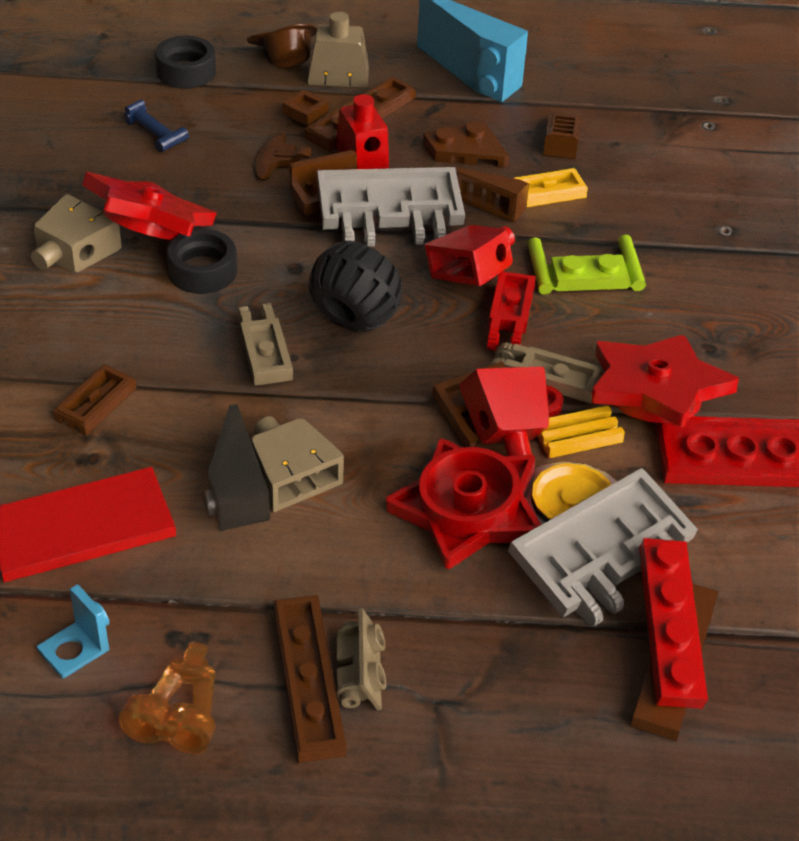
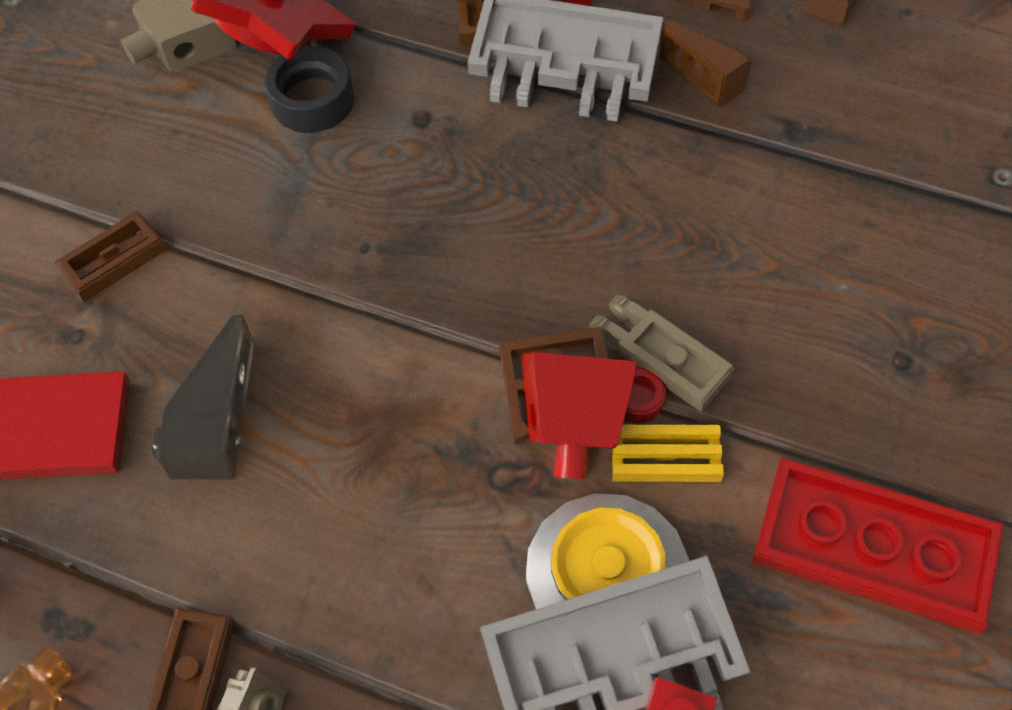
camera: 25 degrees right, 15 degrees up
(265, 347) = (328, 228): dark tan hinge -> none
(295, 461) = (280, 410): dark tan torso -> none
(355, 286) = (456, 174): black wheel -> none
(468, 500) = (492, 562): red plate -> none
(470, 254) = (634, 152): red torso -> none
(510, 307) = (654, 242): red hinge -> none
(554, 187) = (785, 64): yellow tile -> none
(587, 272) = (785, 206): lime plate -> none
(658, 380) = (799, 409): red plate -> none

